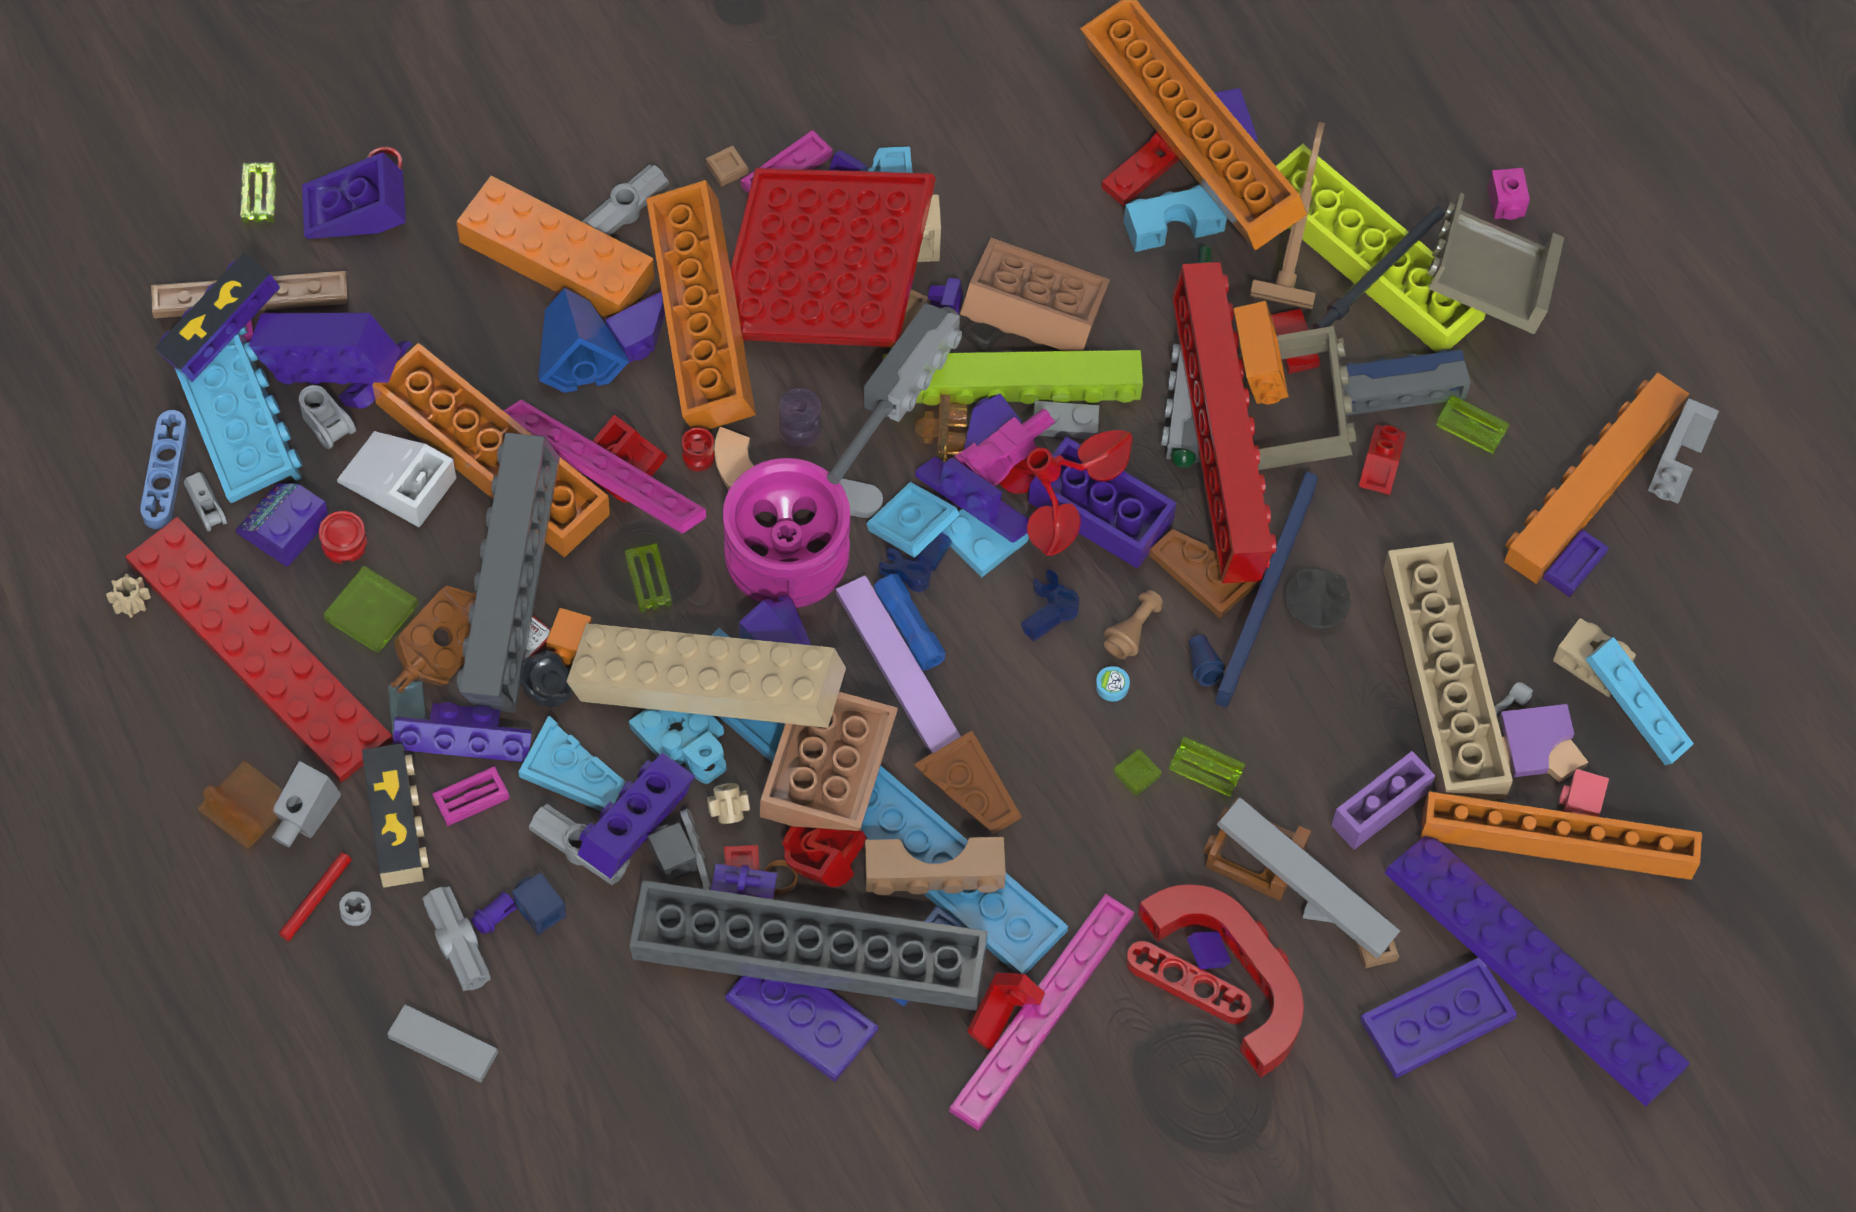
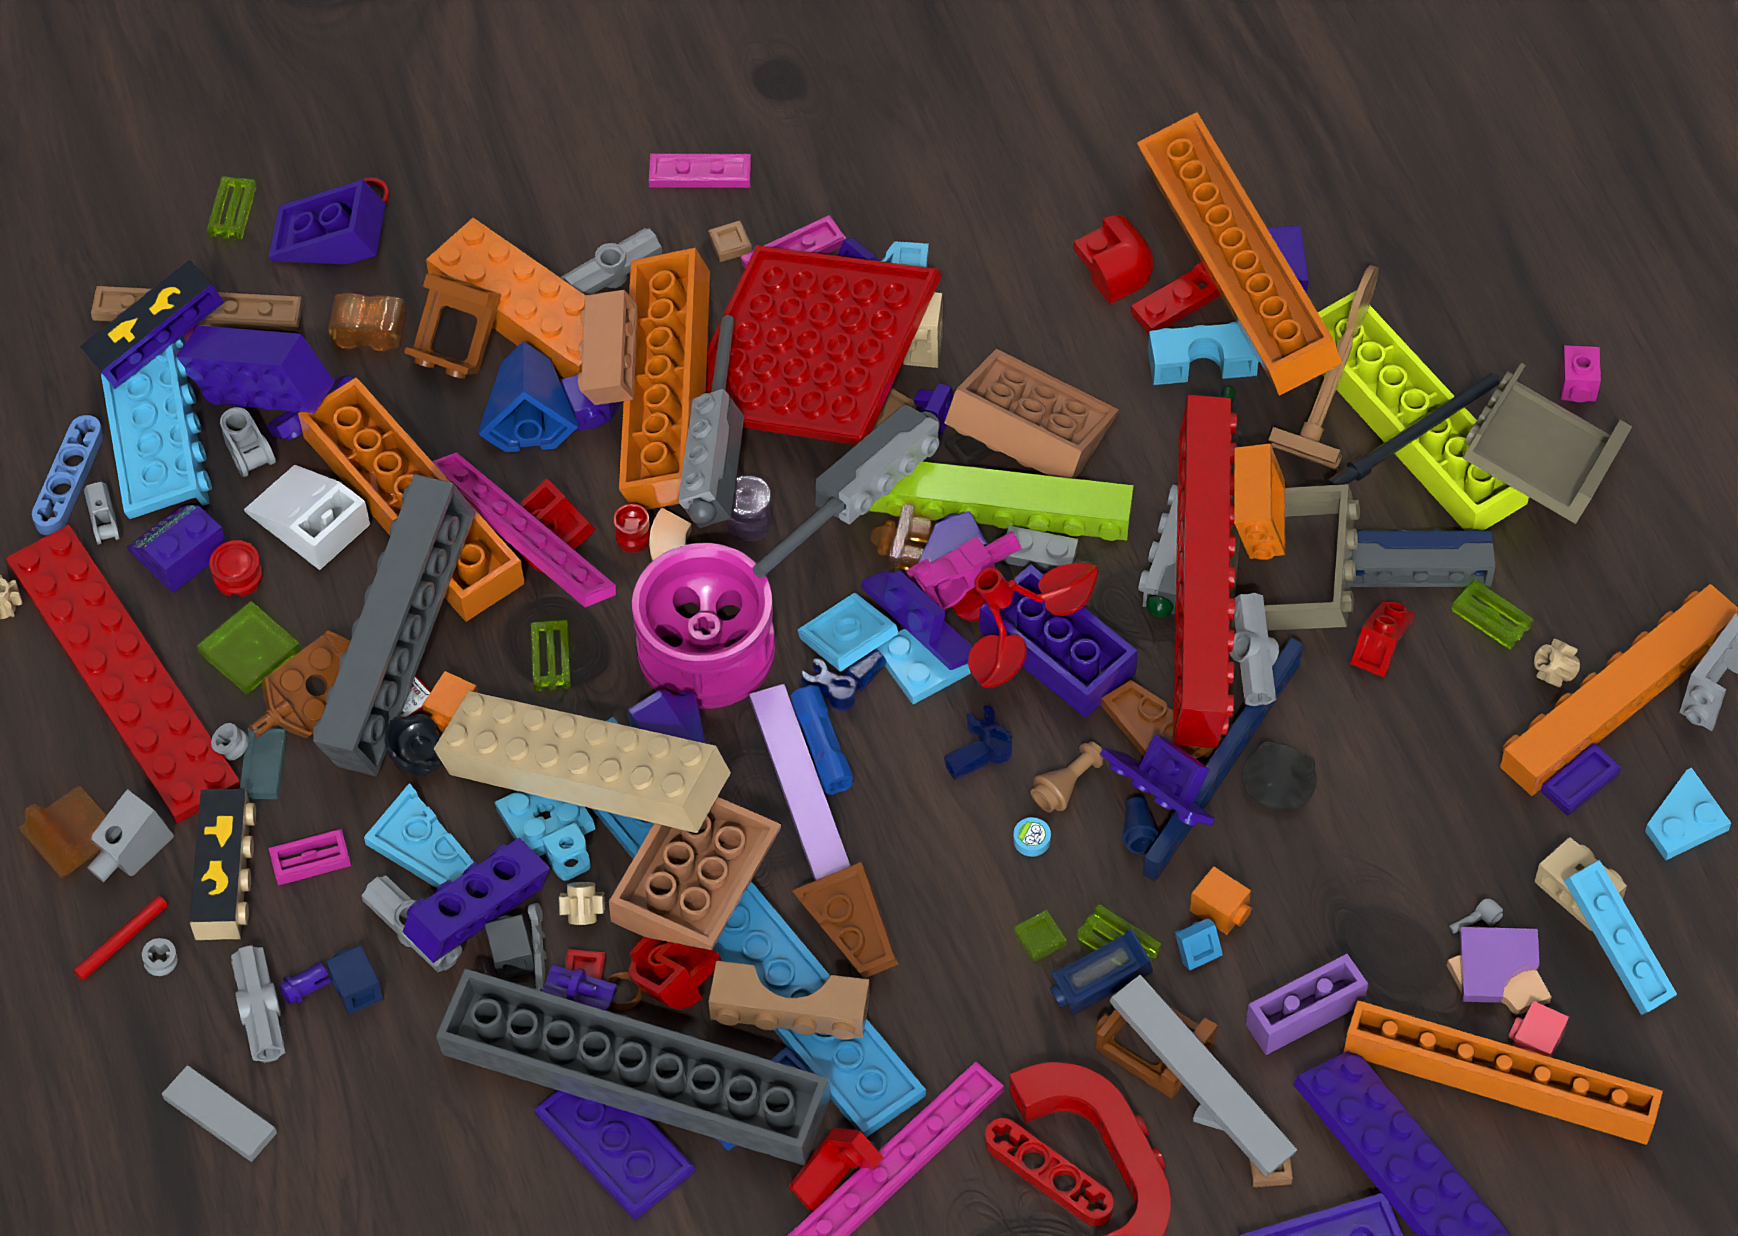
camera: 15 degrees right, 5 degrees down
(366, 697) = (237, 738): none -> light grey bush
(411, 286) = (367, 321): none -> clear orange brick
(462, 733) = (314, 789): dark purple bracket -> none
(499, 253) = (464, 297): none -> dark orange window
(646, 285) = (608, 347): none -> nougat brick
(685, 101) = (700, 170): none -> dark pink tile
(760, 362) = (713, 444): none -> piece
(863, 498) = (794, 601): light grey tile -> none
(1080, 138) = (1116, 258): none -> red brick
(1200, 799) = (1100, 973): none -> dark blue window
(1208, 950) = (1078, 1139): dark purple tile -> none
(1224, 611) = (1167, 774): none -> dark purple bracket
(1277, 759) = (1198, 944): none -> dark azure tile
(1281, 489) = (1254, 650): none -> light grey piece
(1290, 718) = (1221, 901): none -> orange brick
(1293, 322) = (1305, 478): red tile -> none
(1447, 672) = (1407, 876): tan brick -> none
(1538, 461) = (1556, 662): none -> tan gear
(1672, 584) = (1686, 818): none -> medium azure wing

